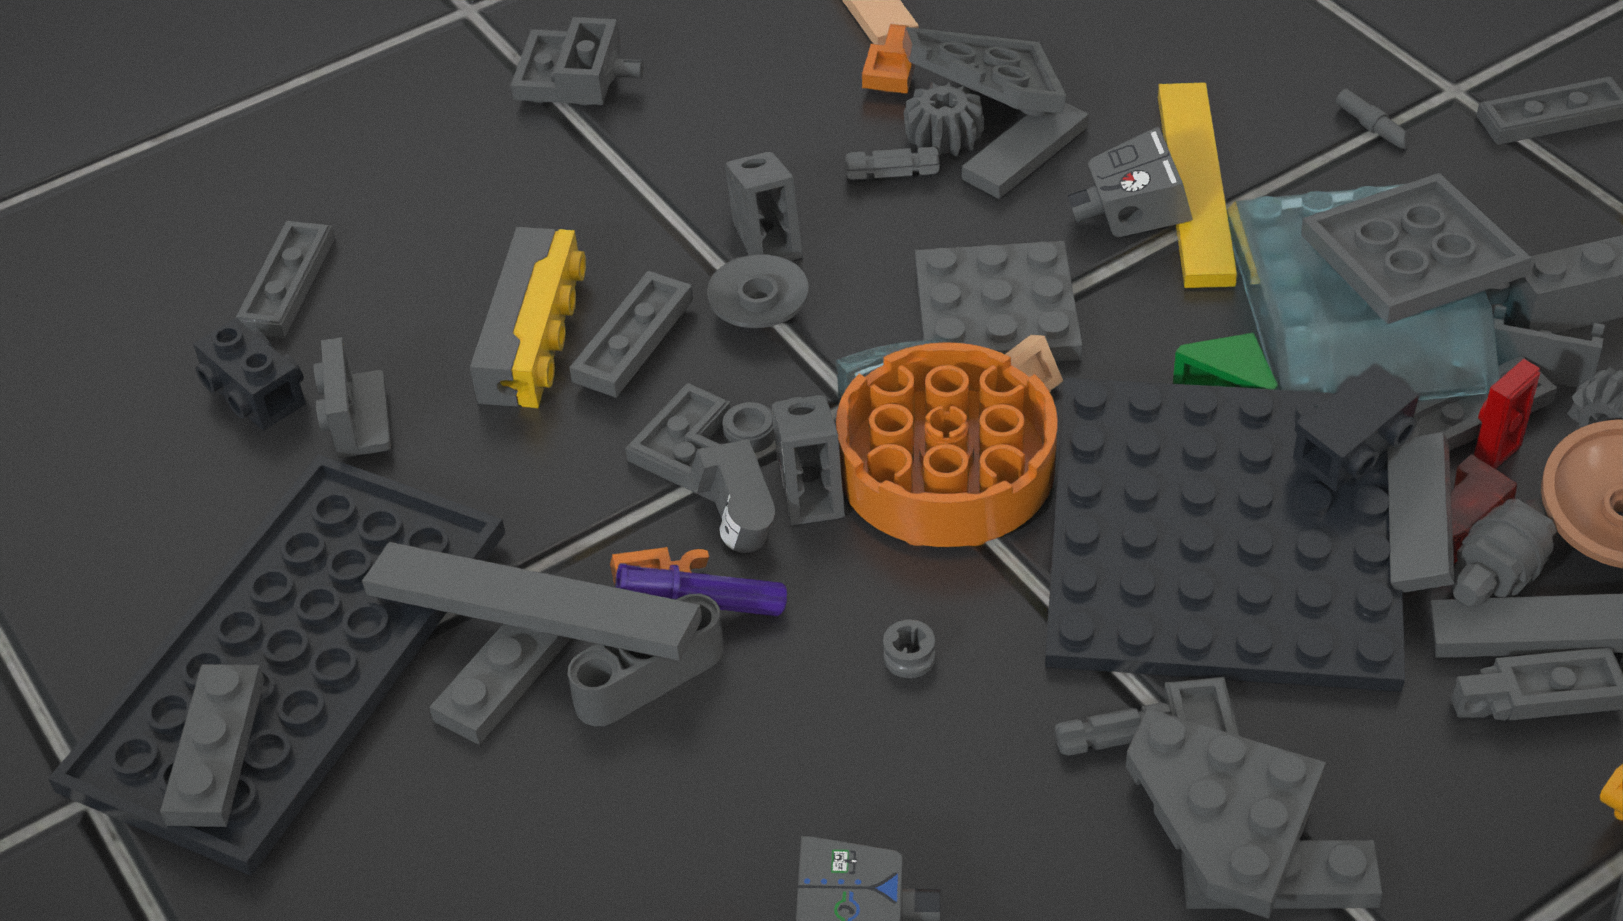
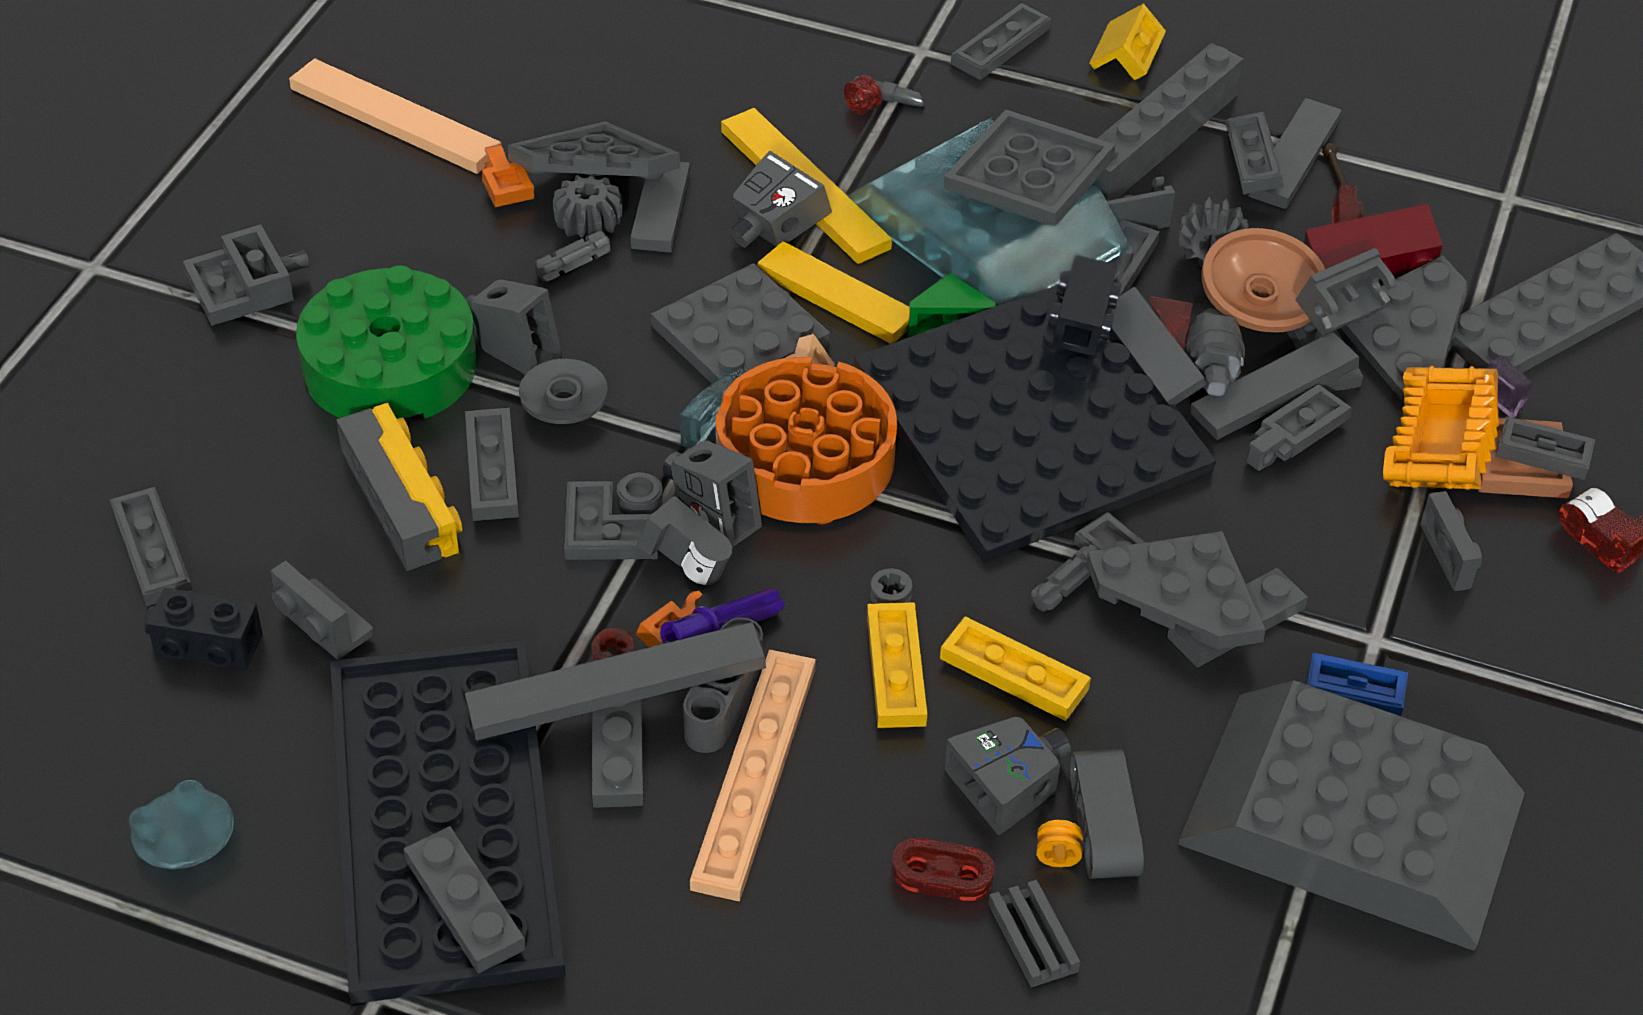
camera: 40 degrees left, 0 degrees up
(72, 547) = (181, 827): none -> clear light blue dish
(584, 557) = (611, 638): none -> clear red bush
(603, 770) = (753, 776): none -> light nougat tile
(635, 177) = (388, 341): none -> green brick
(840, 730) = (896, 665): none -> yellow plate
(965, 801) = (1015, 668): none -> yellow plate
(1128, 304) = (836, 292): none -> yellow tile
(1335, 110) = (862, 94): none -> clear red bush
(1506, 414) = (1150, 259): red plate -> none

